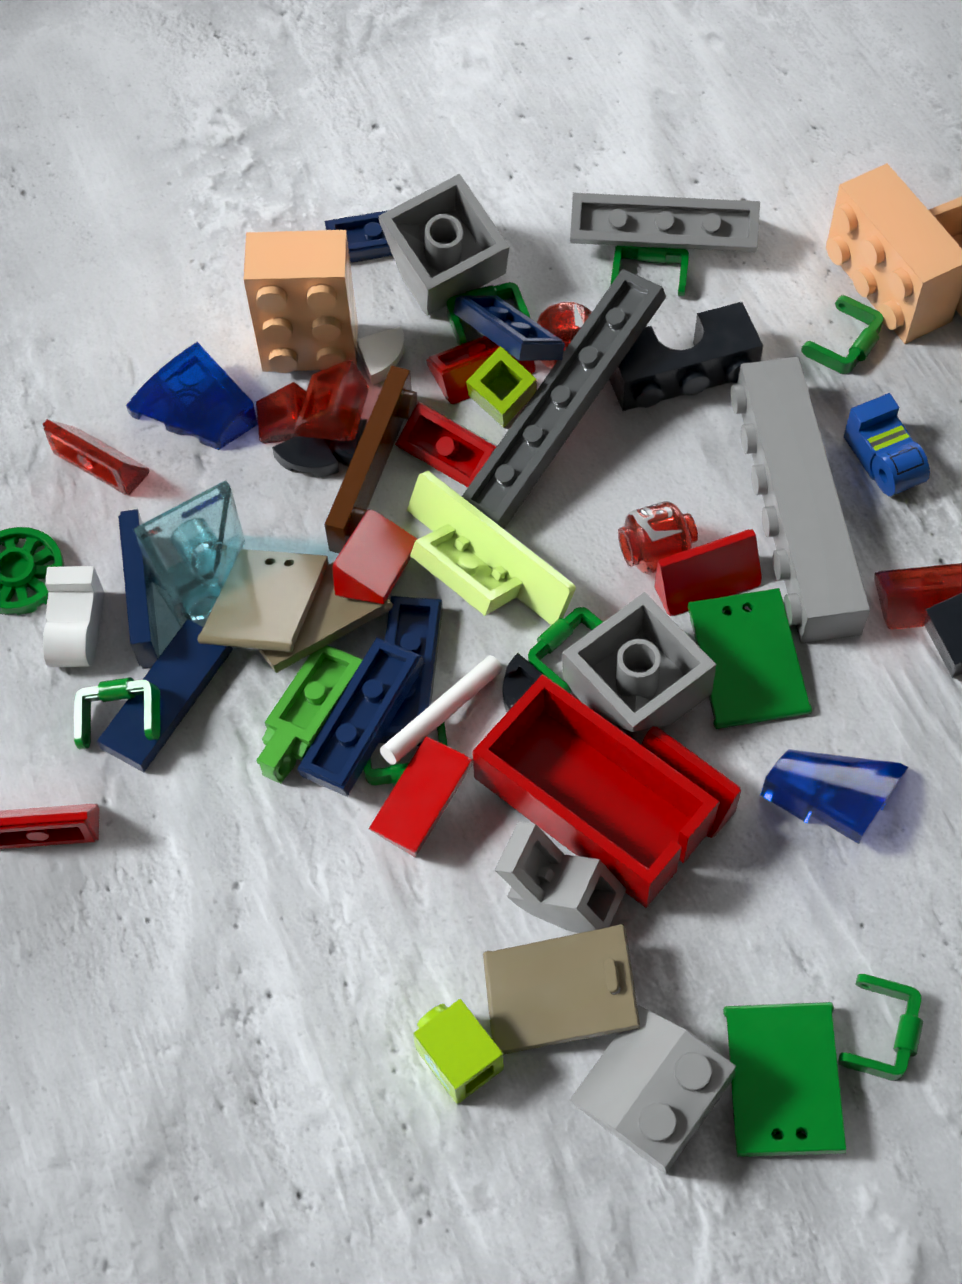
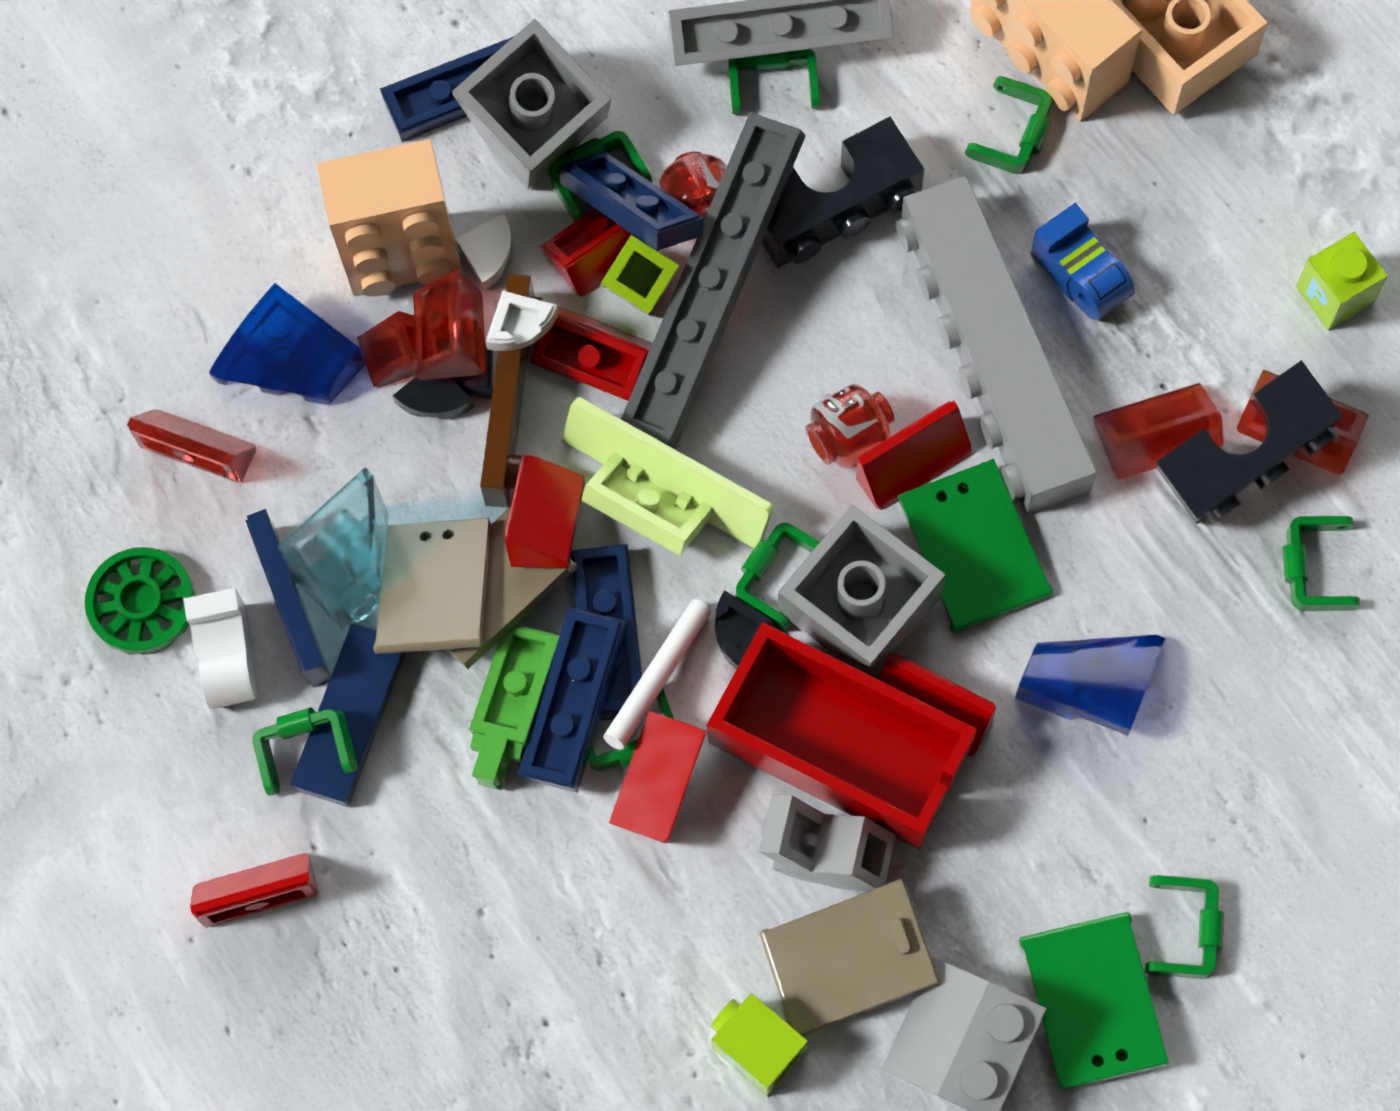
camera: 10 degrees left, 10 degrees up
(390, 401) = (519, 322): none -> white tile

